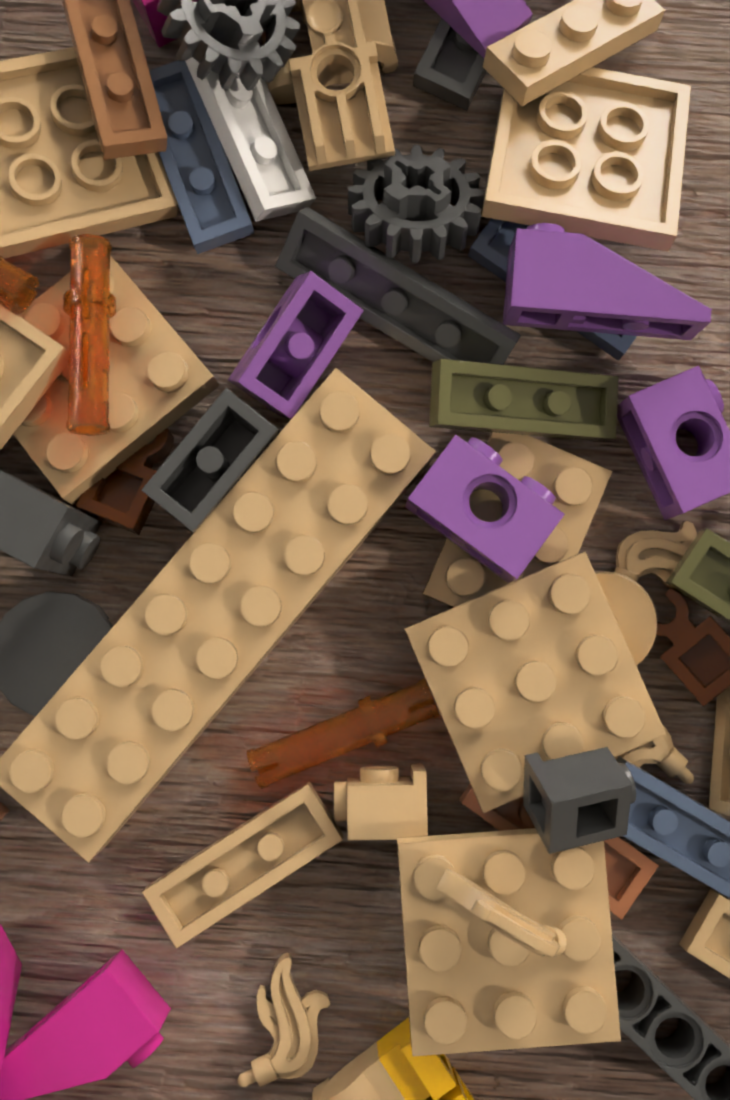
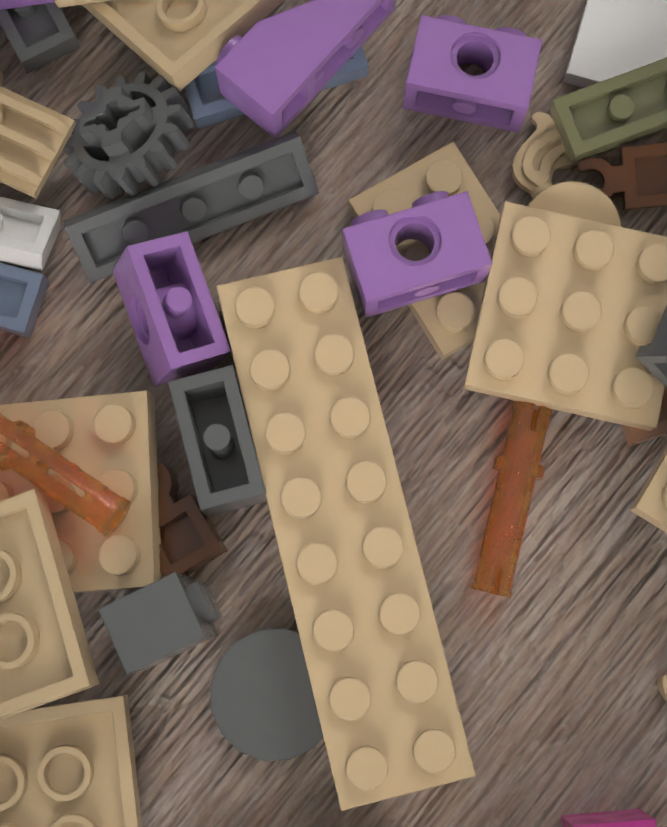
camera: 50 degrees left, 5 degrees down
(242, 864) = (561, 658): tan plate -> none
(383, 803) = (592, 506): tan brick -> none
(523, 400) = (348, 166): olive plate -> none

